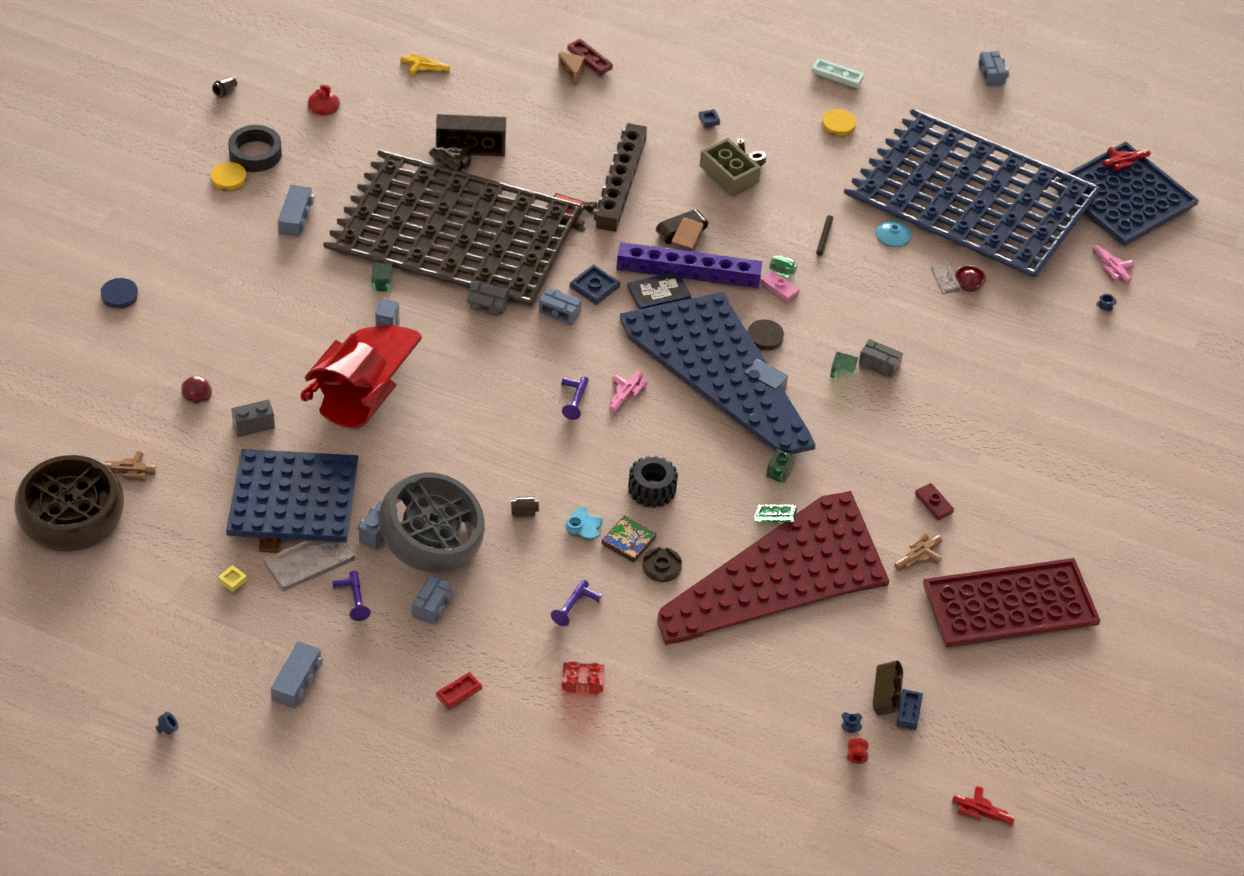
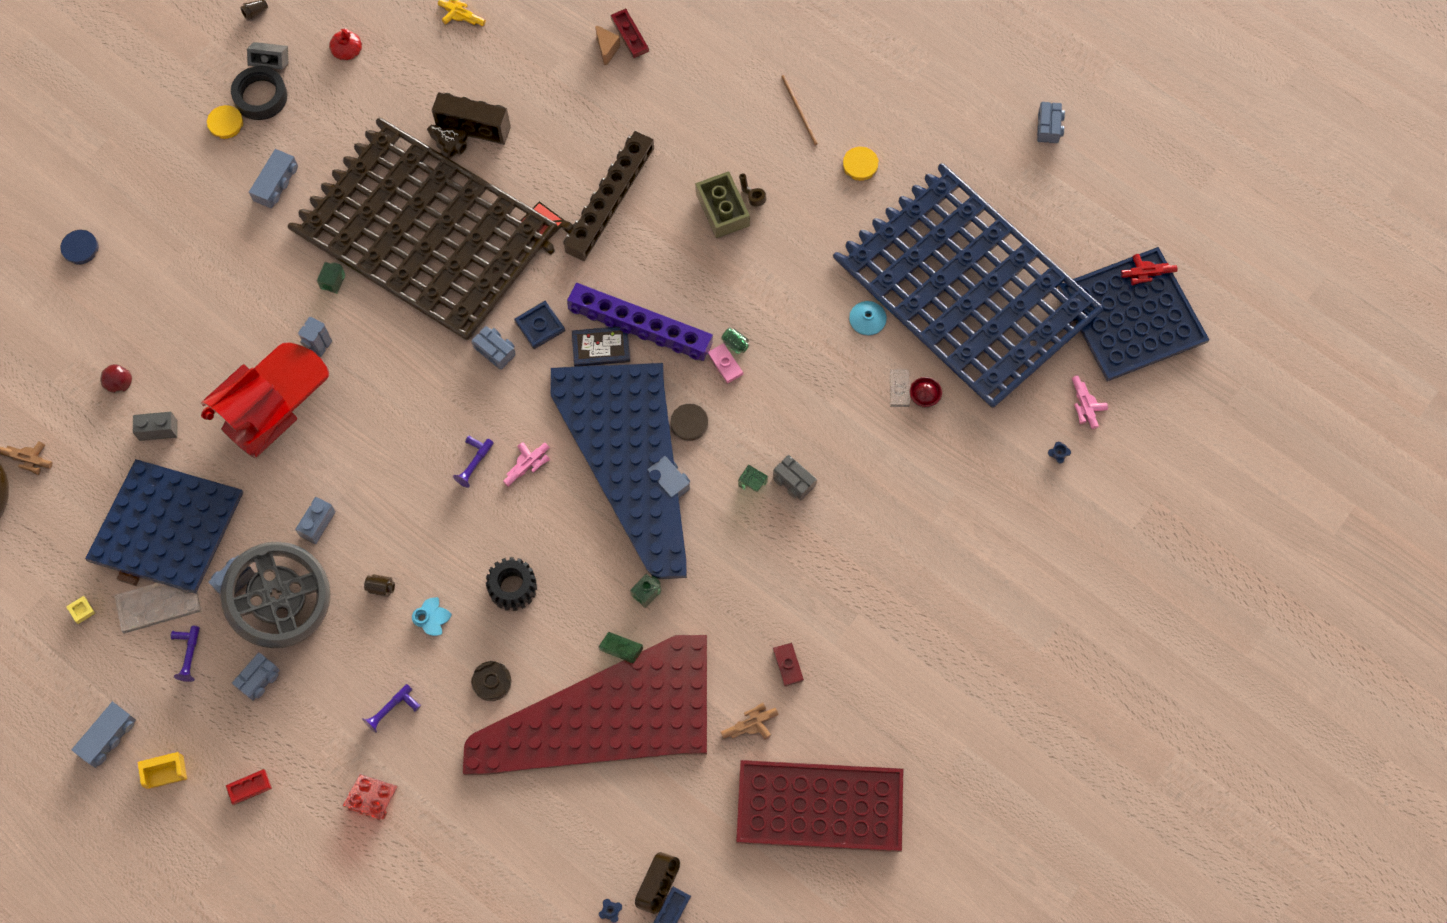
camera: 20 degrees right, 20 degrees up
(254, 116) = (267, 55): none -> dark grey brick
(367, 692) = (162, 770): none -> yellow panel
(443, 459) = (315, 520): none -> sand blue brick
(488, 297) = (424, 324): dark grey brick -> none
(628, 538) = (469, 643): tile -> none
(668, 228) = (649, 270): dark brown beam -> none
(688, 234) = (649, 286): medium nougat panel -> none
(709, 118) = (725, 135): dark blue plate -> none
(766, 92) = (799, 110): none -> medium nougat piece
(824, 236) = (792, 310): dark brown bar -> none
(837, 73) = (881, 99): light aqua plate -> none

